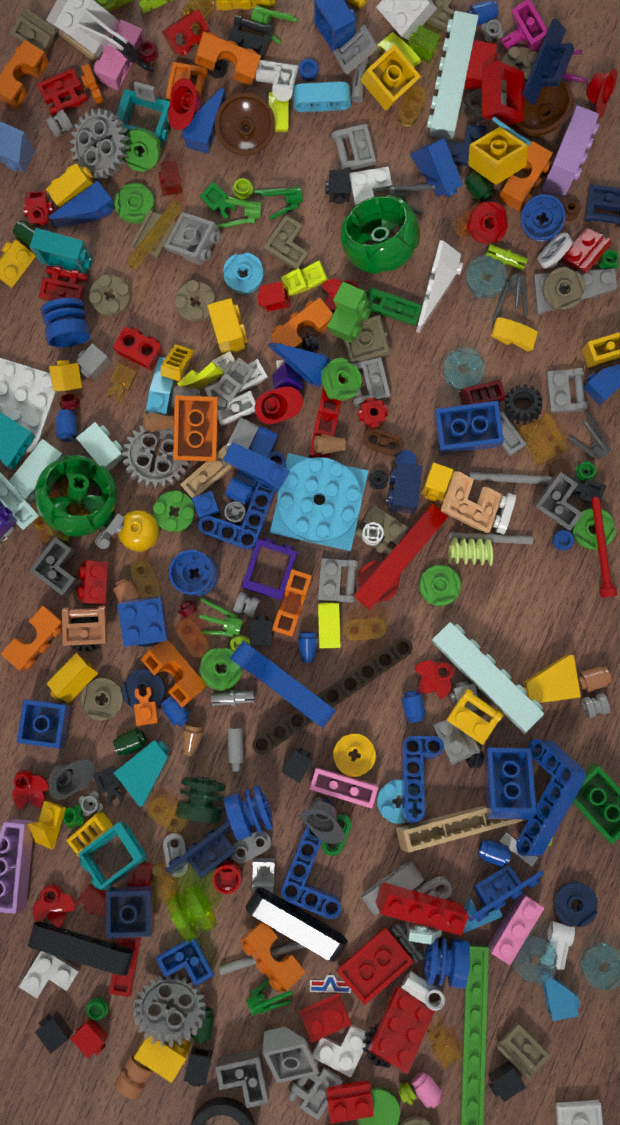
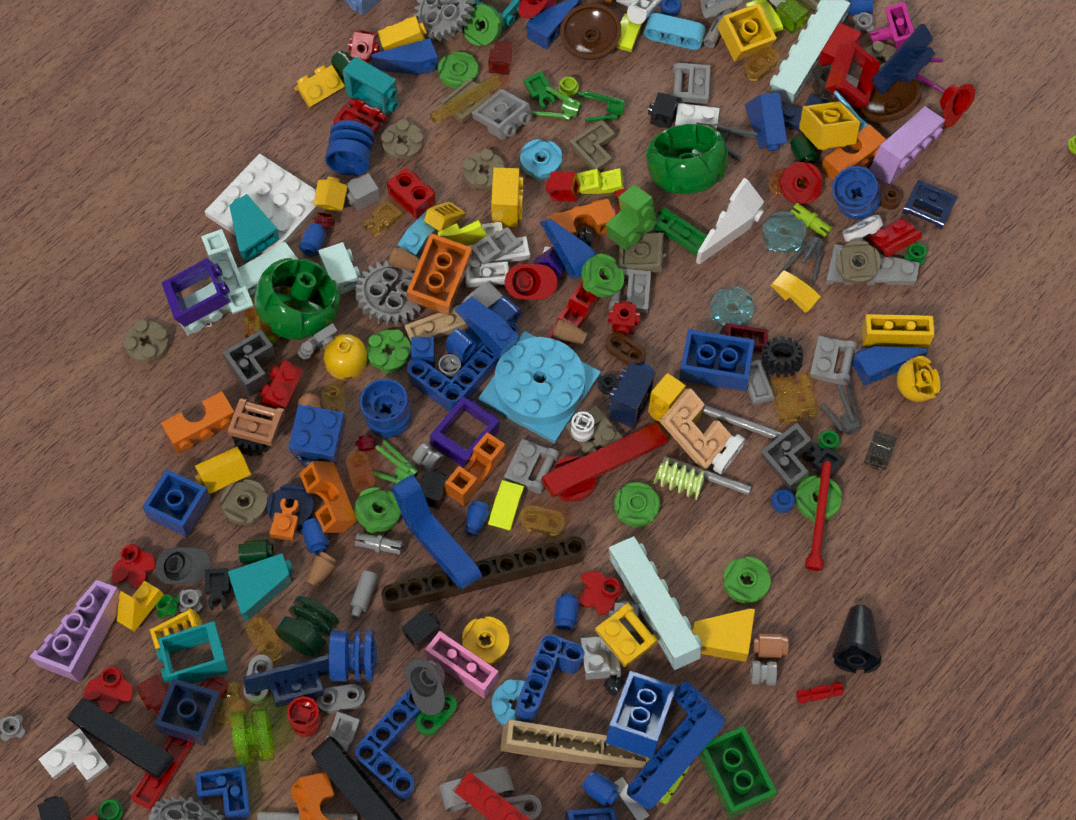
camera: 15 degrees right, 20 degrees down
(565, 618) = (748, 593): none -> bright green plate

